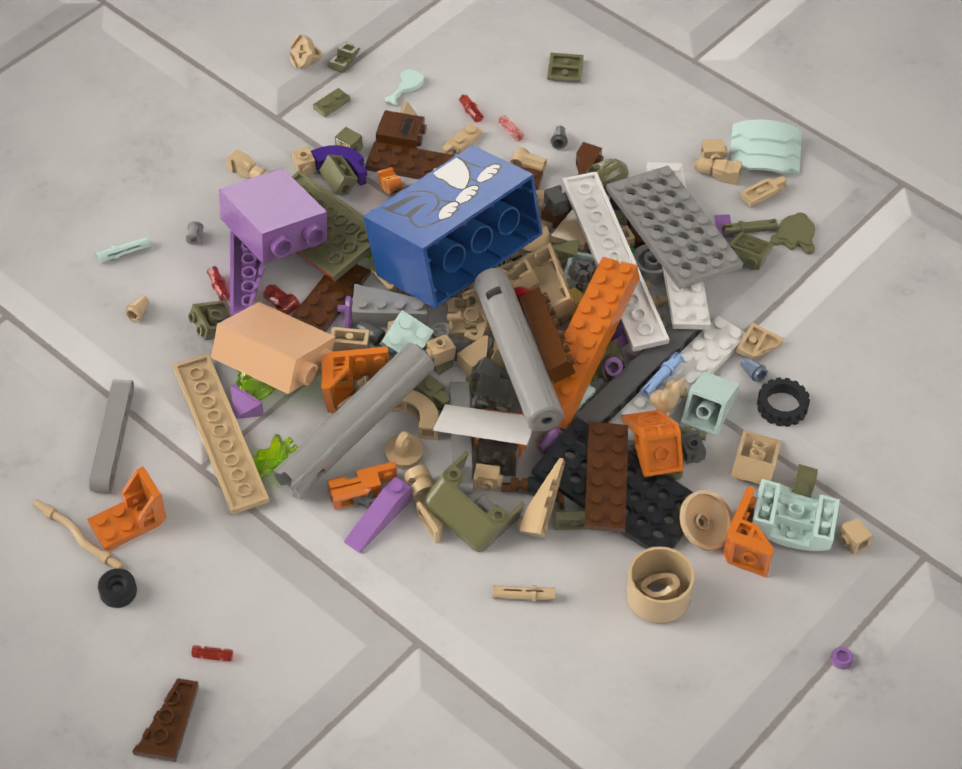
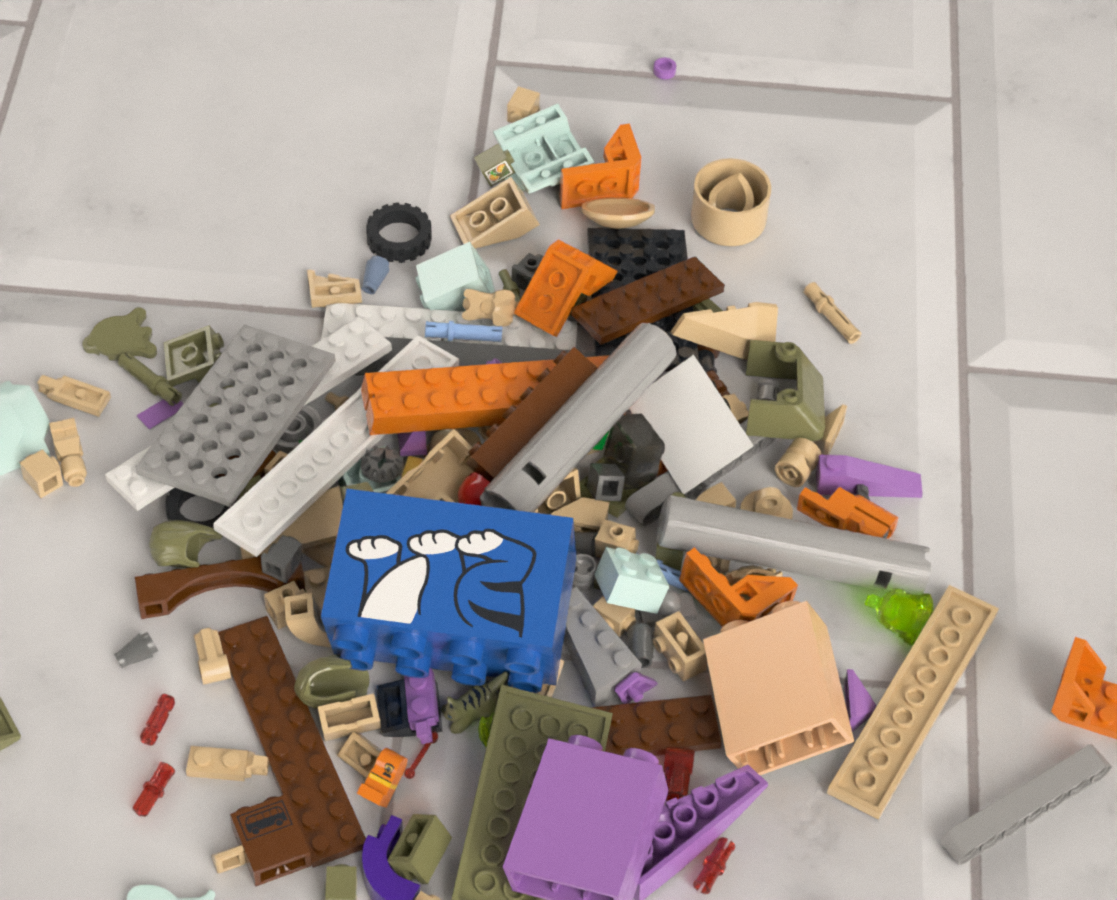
camera: 130 degrees left, 0 degrees up
(207, 316) = (776, 822): olive plate -> none

